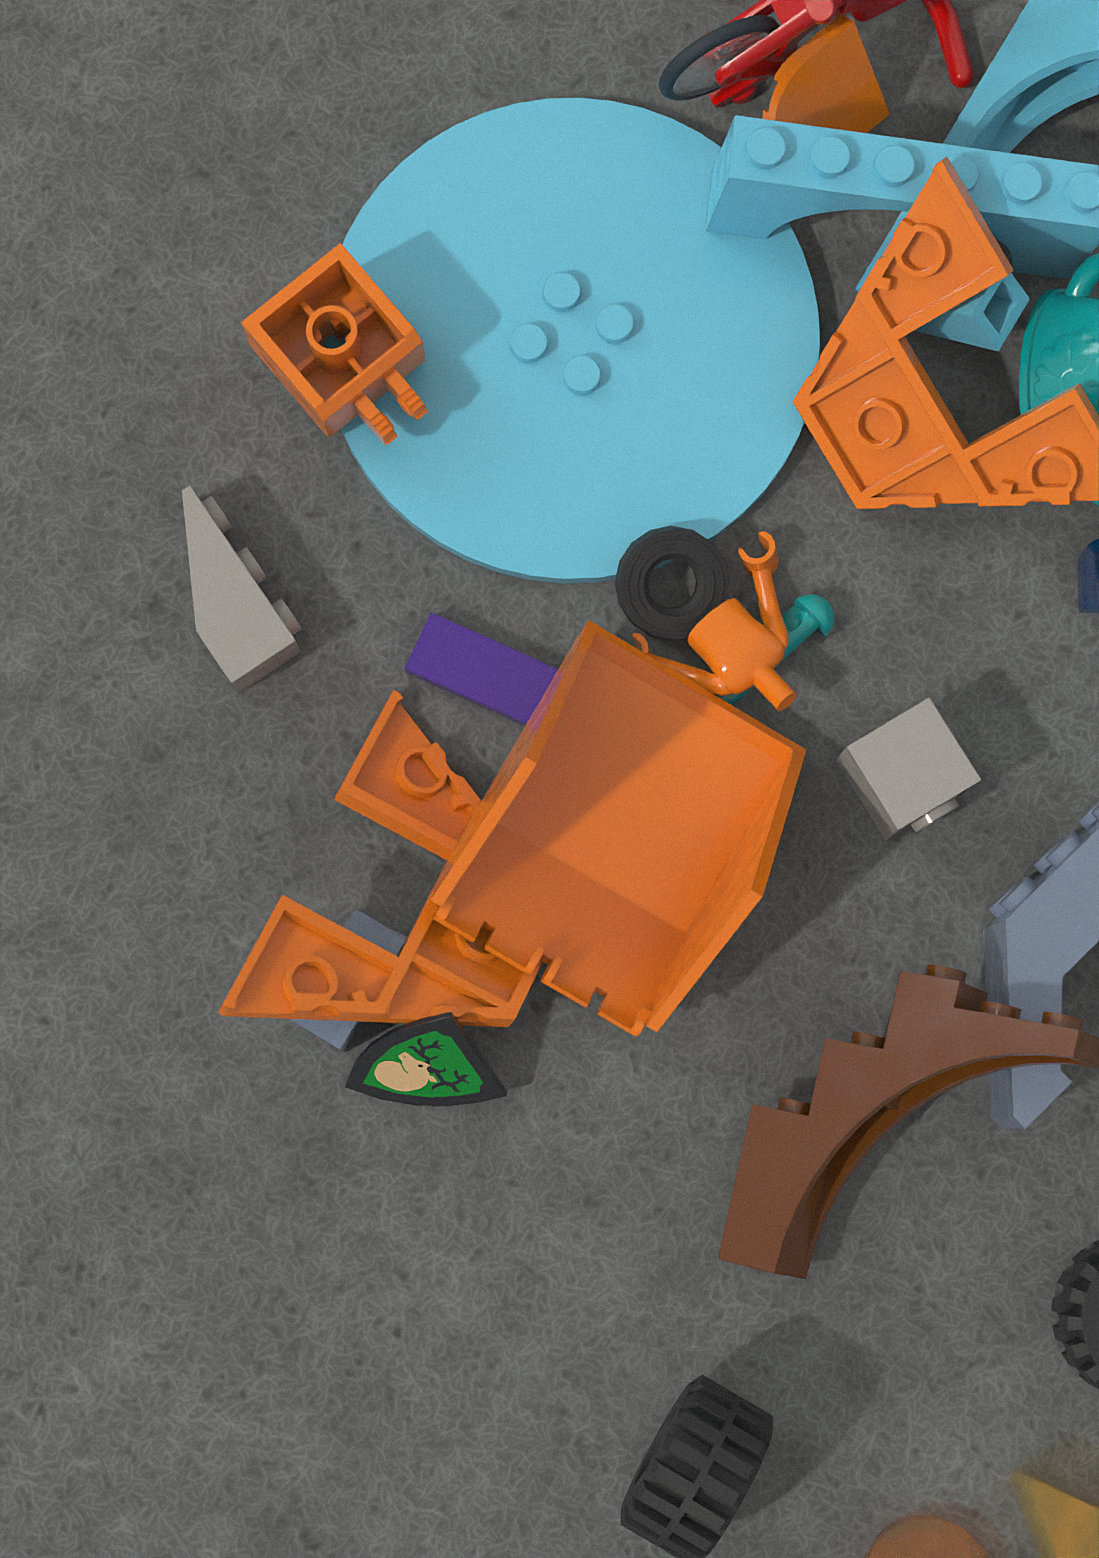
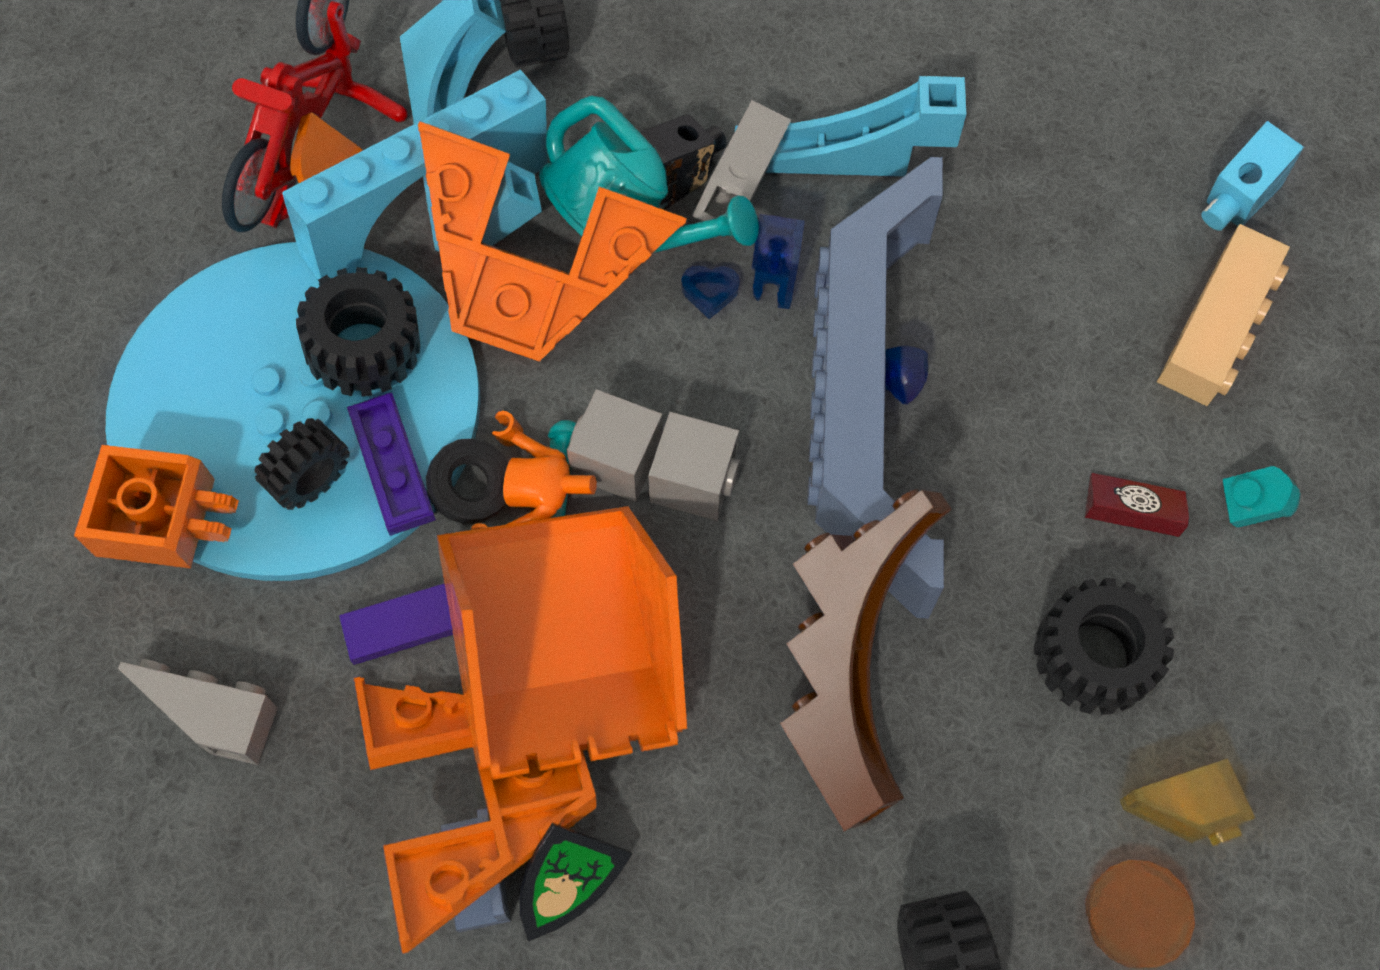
camera: 40 degrees left, 15 degrees down
(519, 428) = (301, 463): none -> black tyre
(610, 494) = (391, 464): none -> dark purple tile
(725, 286) = (352, 301): none -> black tyre
(848, 675) = (615, 444): none -> light grey head

